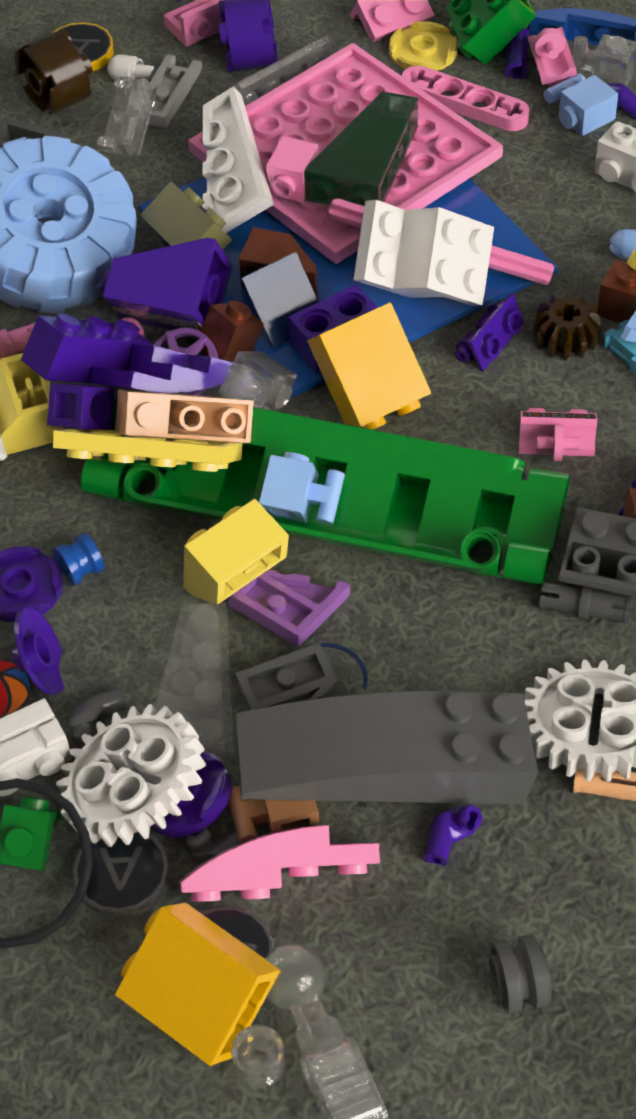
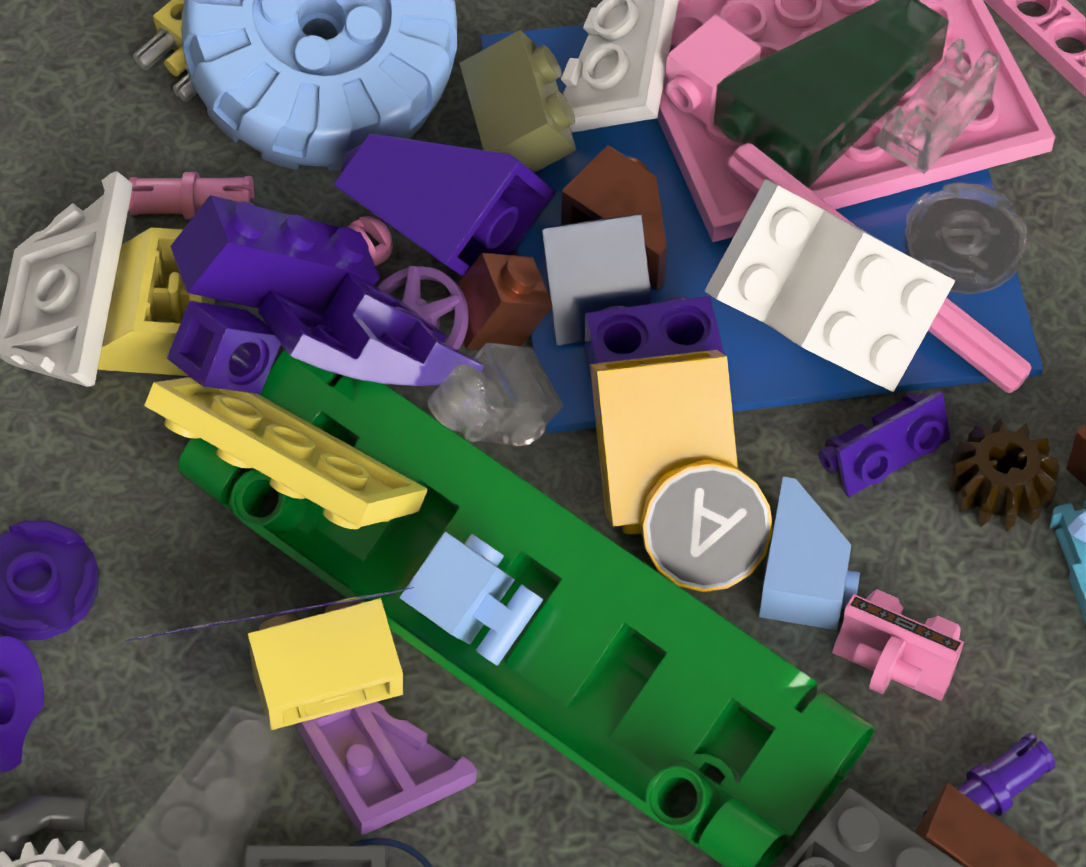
camera: 20 degrees right, 5 degrees up
(79, 558) = (125, 577): blue wheel -> none
(181, 540) = (269, 614): none -> sticker
(183, 416) = (356, 422): light nougat slope -> none
(416, 403) = (706, 525): none -> tile
(433, 148) = (939, 108): none -> clear hinge
(481, 408) = (806, 564): none -> light blue slope
(486, 206) = (966, 236): none -> clear tile

